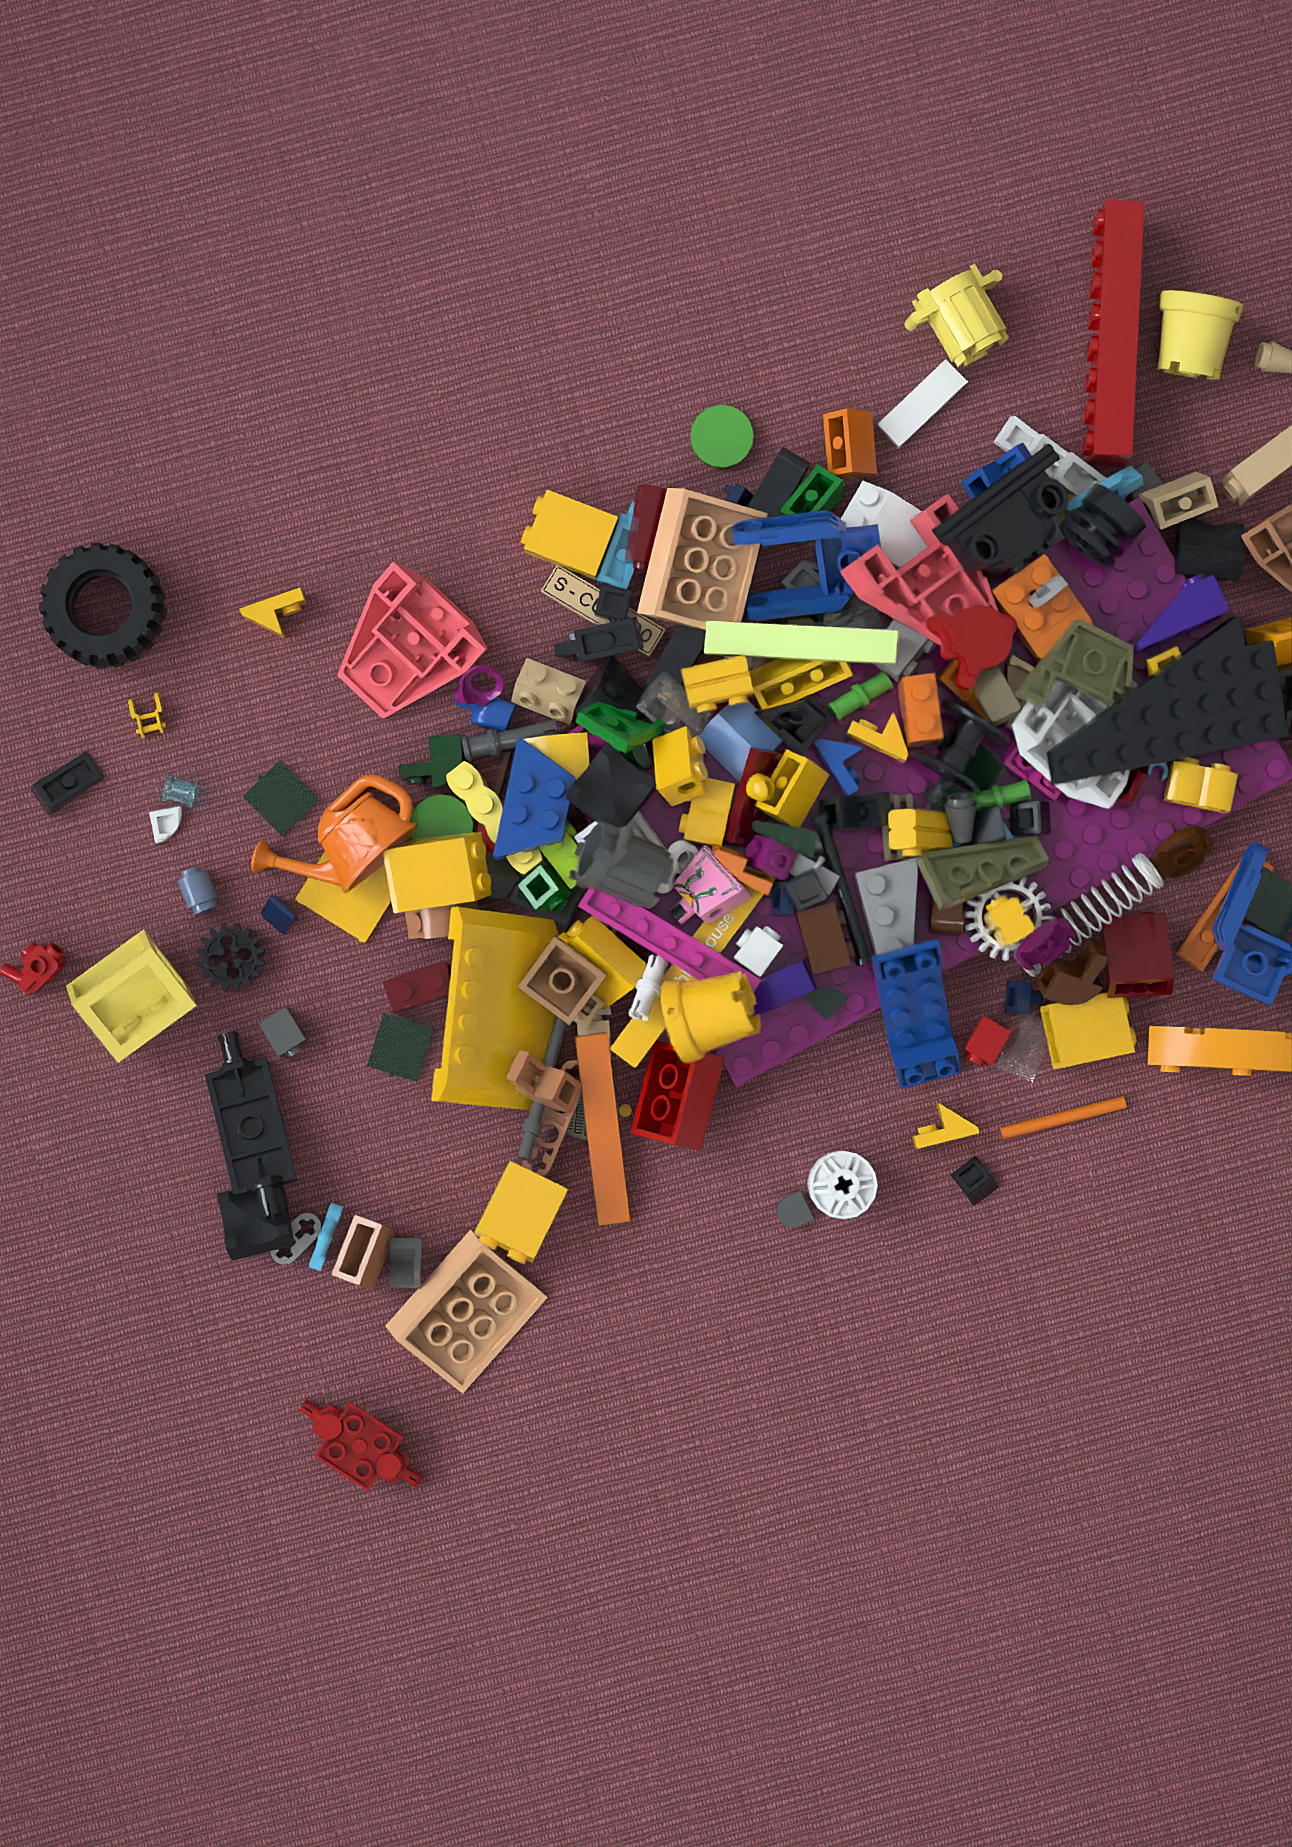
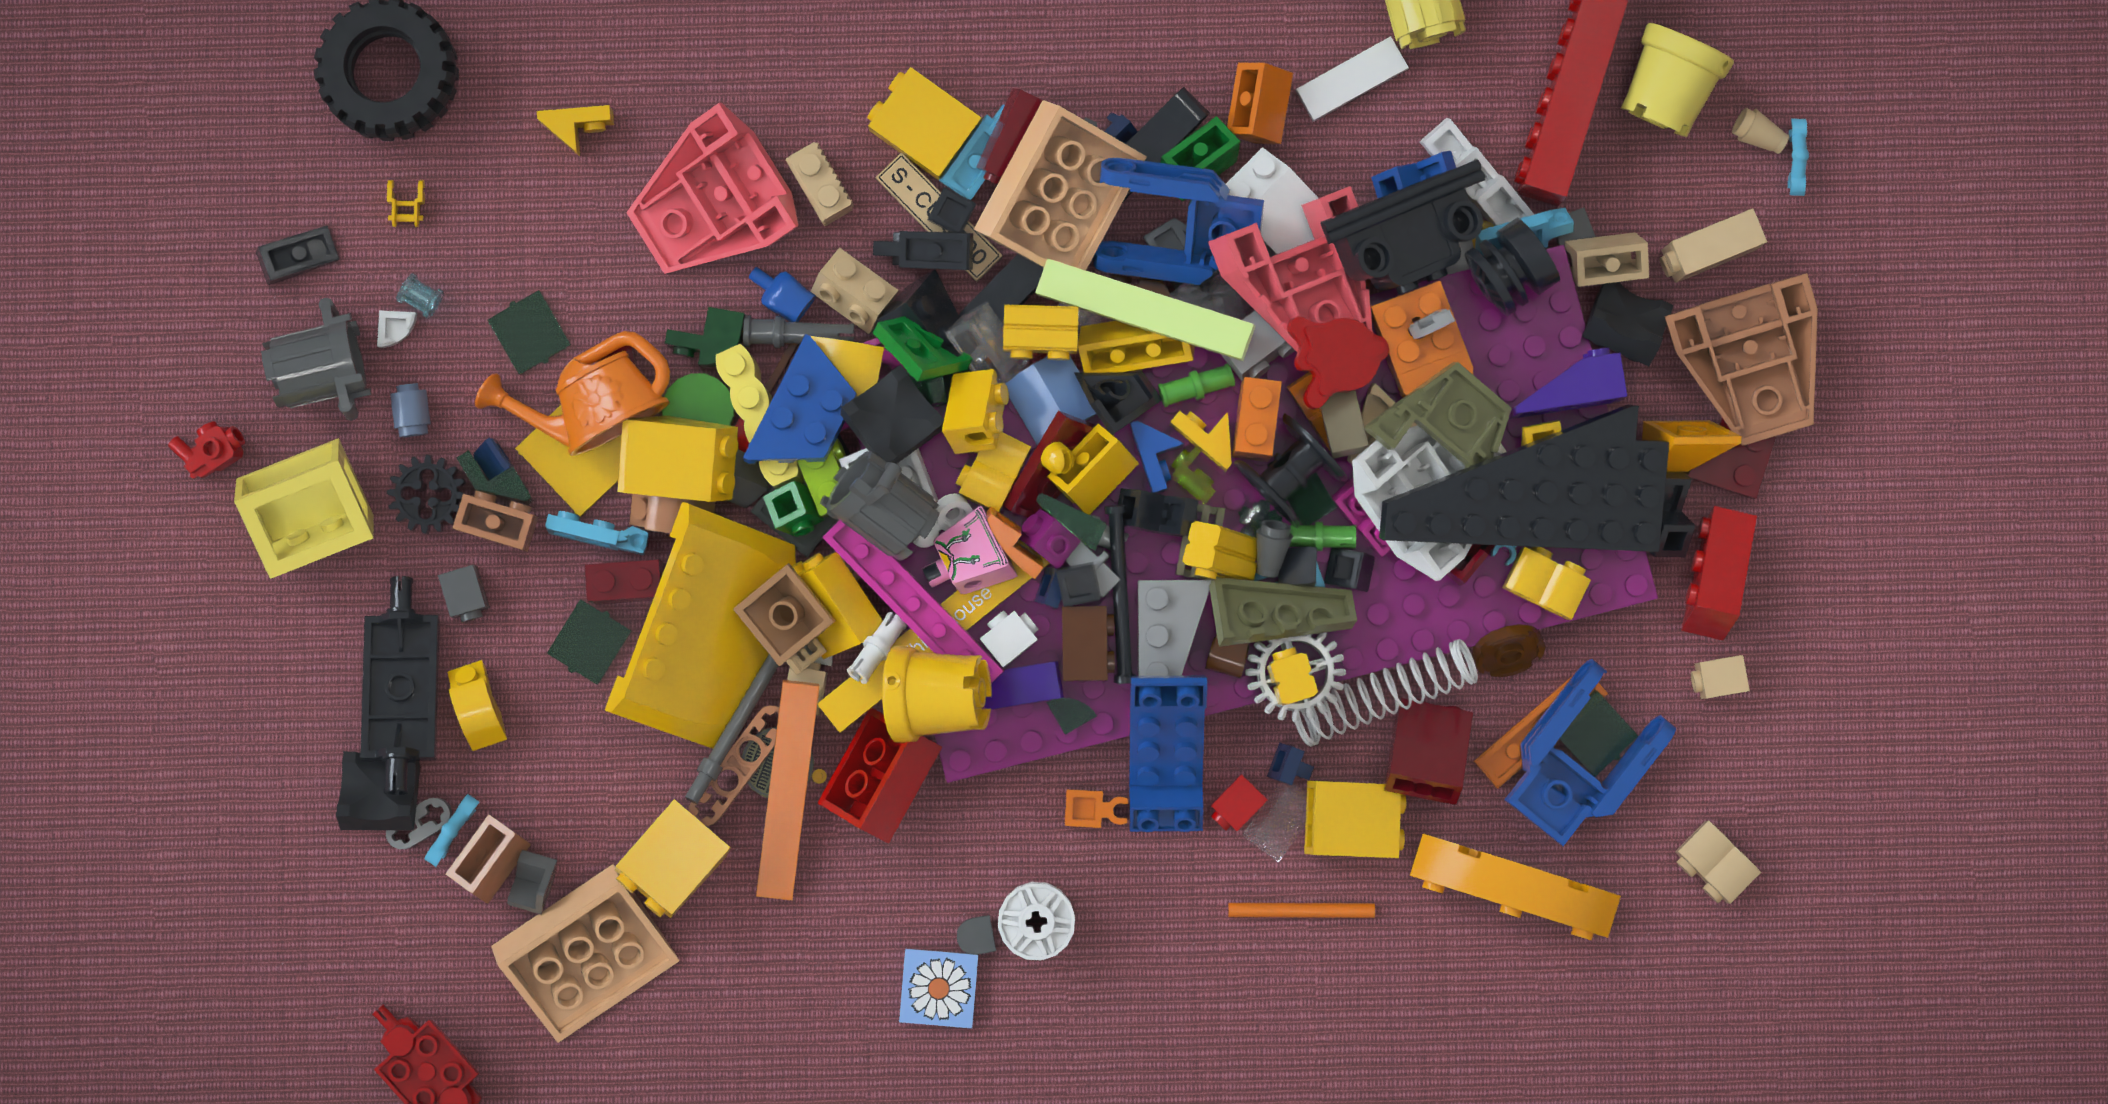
camera: 10 degrees right, 0 degrees up
(110, 870) = (318, 363): none -> dark grey container
(295, 933) = (505, 485): none -> clear green slope
(295, 966) = (495, 522): none -> nougat brick
(319, 1125) = (476, 706): none -> yellow brick
(385, 953) = (599, 534): none -> medium azure hinge
(468, 694) = (765, 271): magenta piece -> none
(495, 608) = (820, 183): none -> tan brick
(543, 1083) = (733, 723): nougat brick -> none
(721, 436) = (1120, 58): bright green tile -> none
(773, 1263) = (938, 988): none -> tile
(860, 1079) = (1087, 808): none -> orange plate
(882, 778) = (1194, 482): none -> clear neon green bracket
(952, 1128) = (1176, 889): yellow slope -> none
(974, 1180) = (1185, 954): black slope -> none
(1045, 943) = (1328, 712): magenta tile -> none
(1075, 981) = (1351, 762): reddish brown brick -> none

